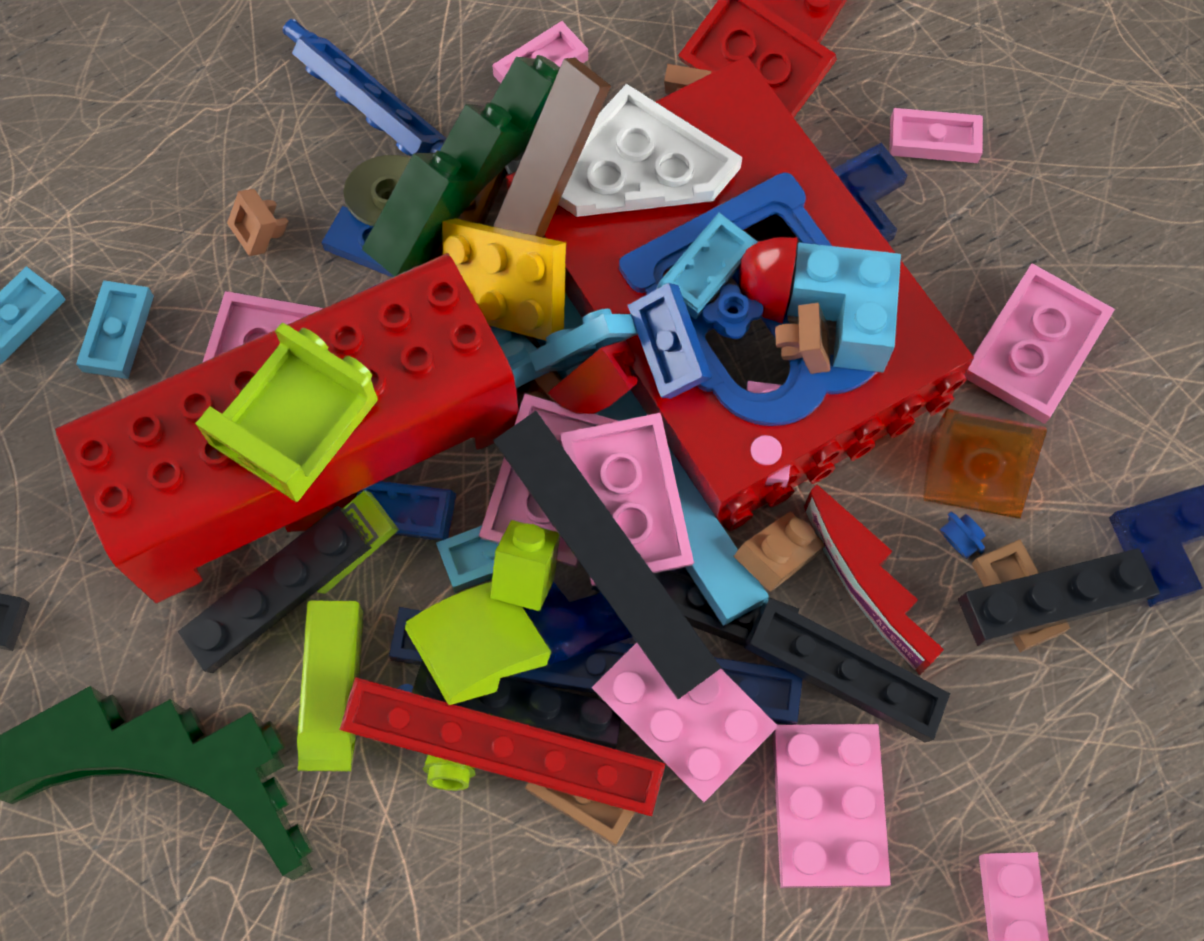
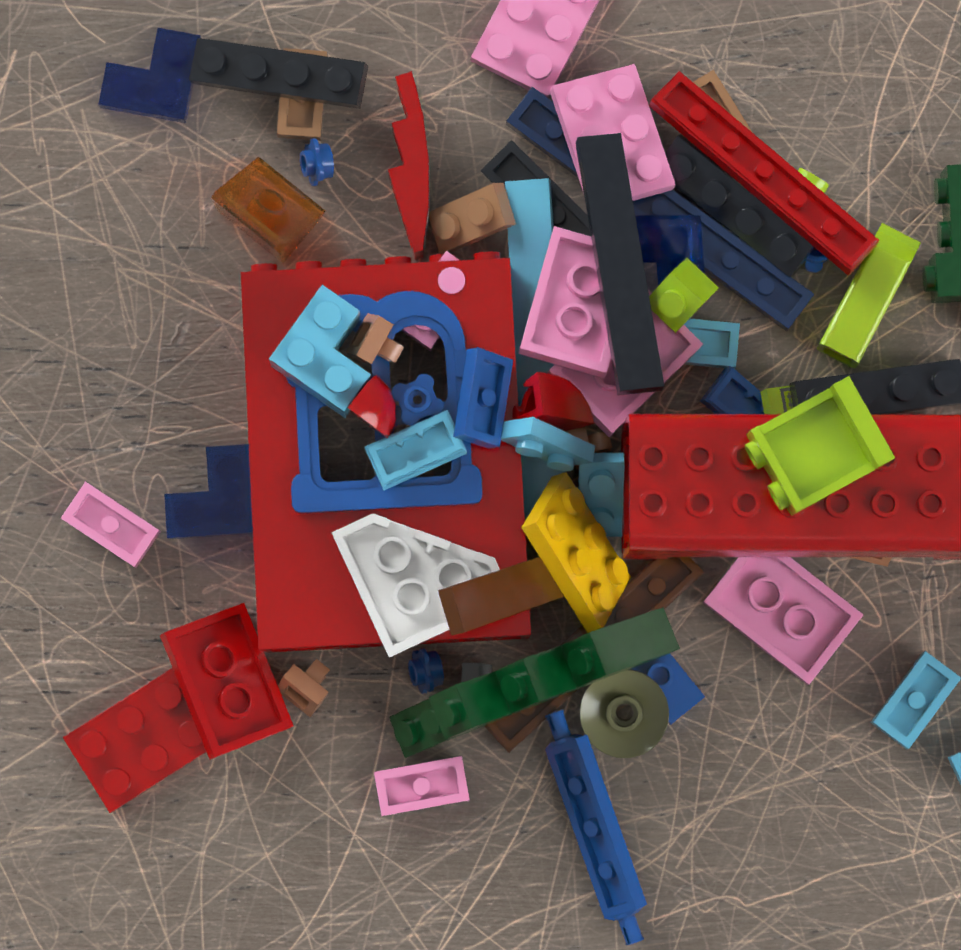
camera: 155 degrees left, 15 degrees up
(254, 222) = (756, 744): nougat tile -> none
(475, 642) = (747, 258): lime slope -> none
(847, 670) = (475, 102): black plate -> none
(1038, 343) = (150, 288): bright pink plate -> none

